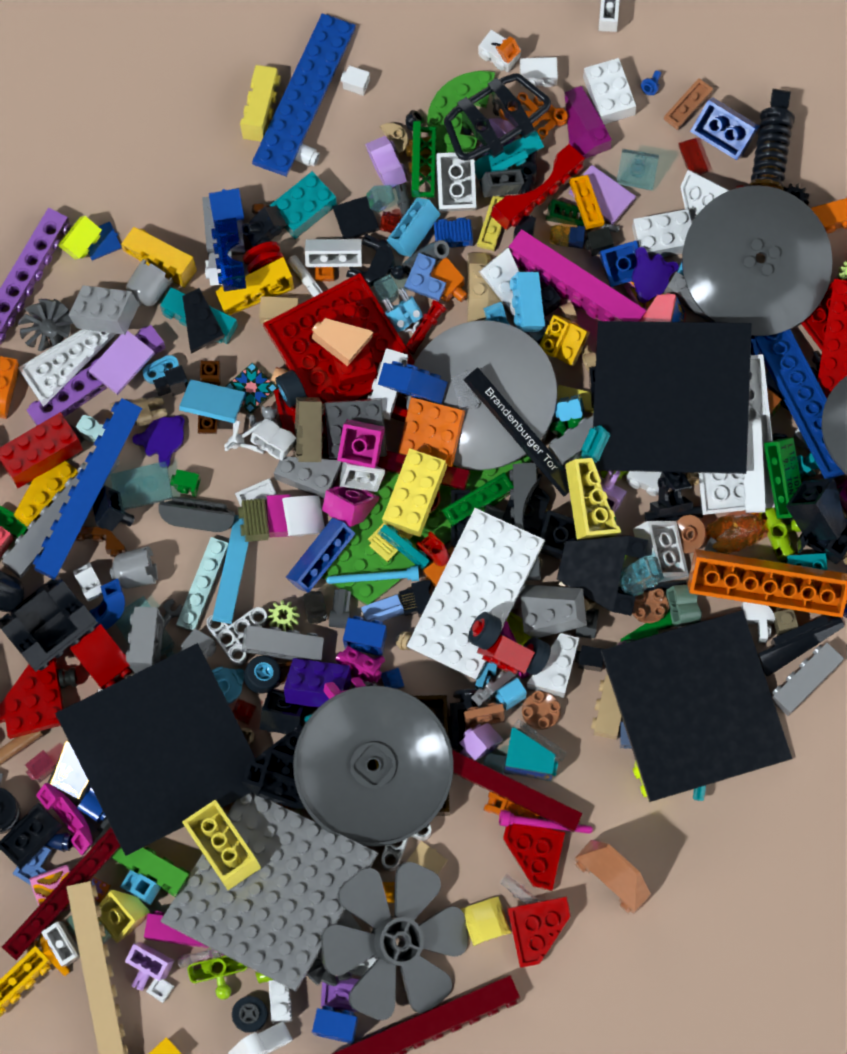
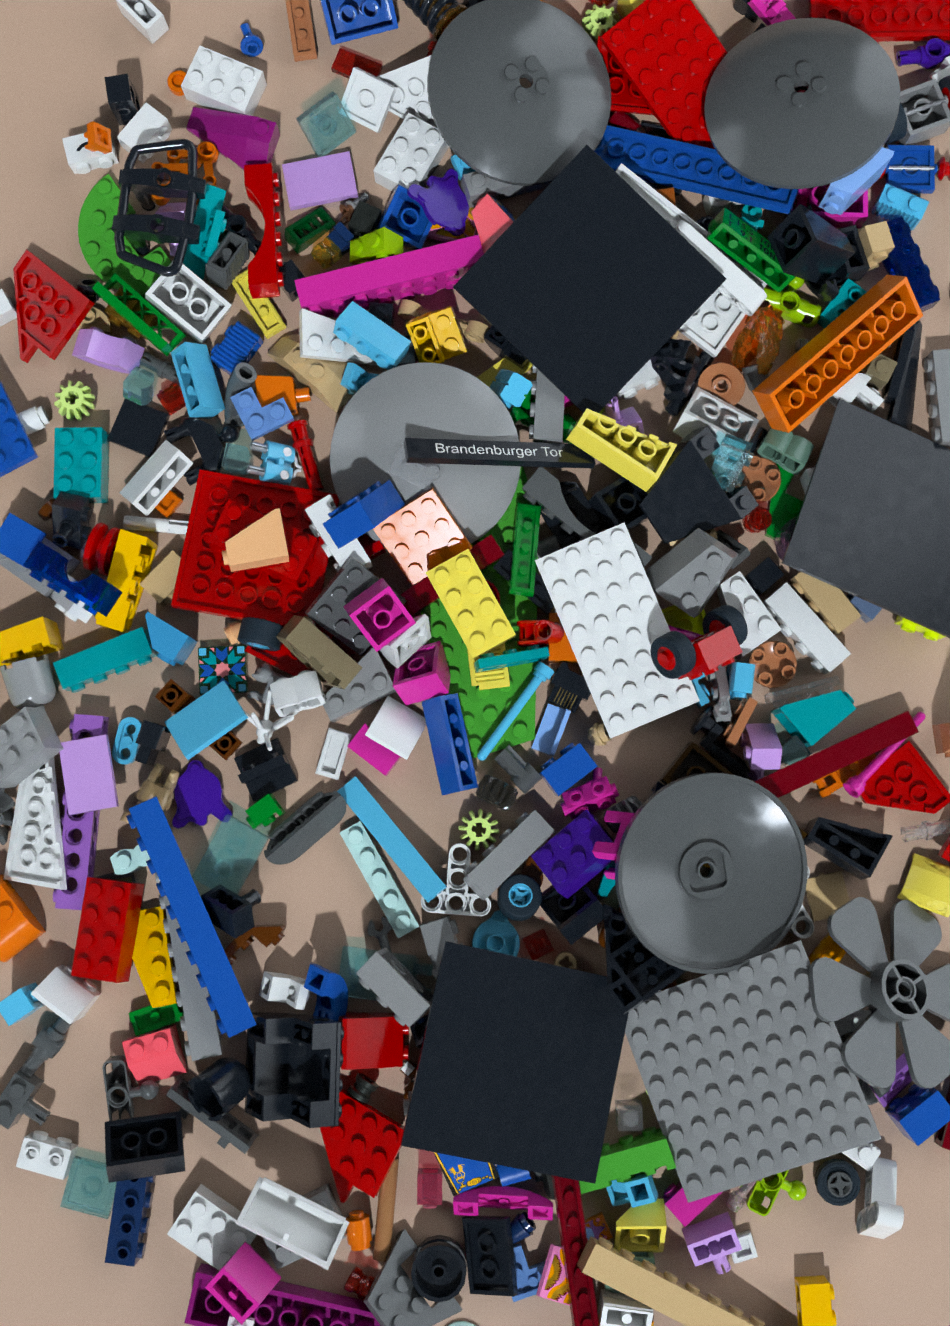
camera: 50 degrees left, 10 degrees up
(134, 568) = (310, 934): light grey cylinder -> none
(184, 850) = (629, 1115): none -> clear brick
(200, 321) = (114, 663): black wing -> none
(212, 462) = (265, 770): none -> black bracket
(221, 844) = (666, 1084): light yellow brick -> none
(240, 342) = (168, 641): none -> dark azure slope
(254, 520) = (360, 778): olive brick -> none
(338, 163) = (68, 397): none -> yellowish green gear
(381, 106) = (46, 308): none -> red wing
(392, 679) = (626, 777): blue tile -> none
(464, 845) = (847, 846): none -> black wedge
(546, 42) = (122, 97): none -> black brick
(580, 711) = (806, 629): none -> white brick
(586, 62) = (174, 82): none -> orange tile
(586, 202) = (317, 198): light orange plate -> none
(587, 259) = (375, 246): none -> lime brick
(595, 443) = (571, 394): teal piece -> none
(622, 628) = (753, 523): none -> clear red wheel
(676, 179) = (367, 99): none -> white plate
(804, 342) = (624, 121): none -> dark red piece

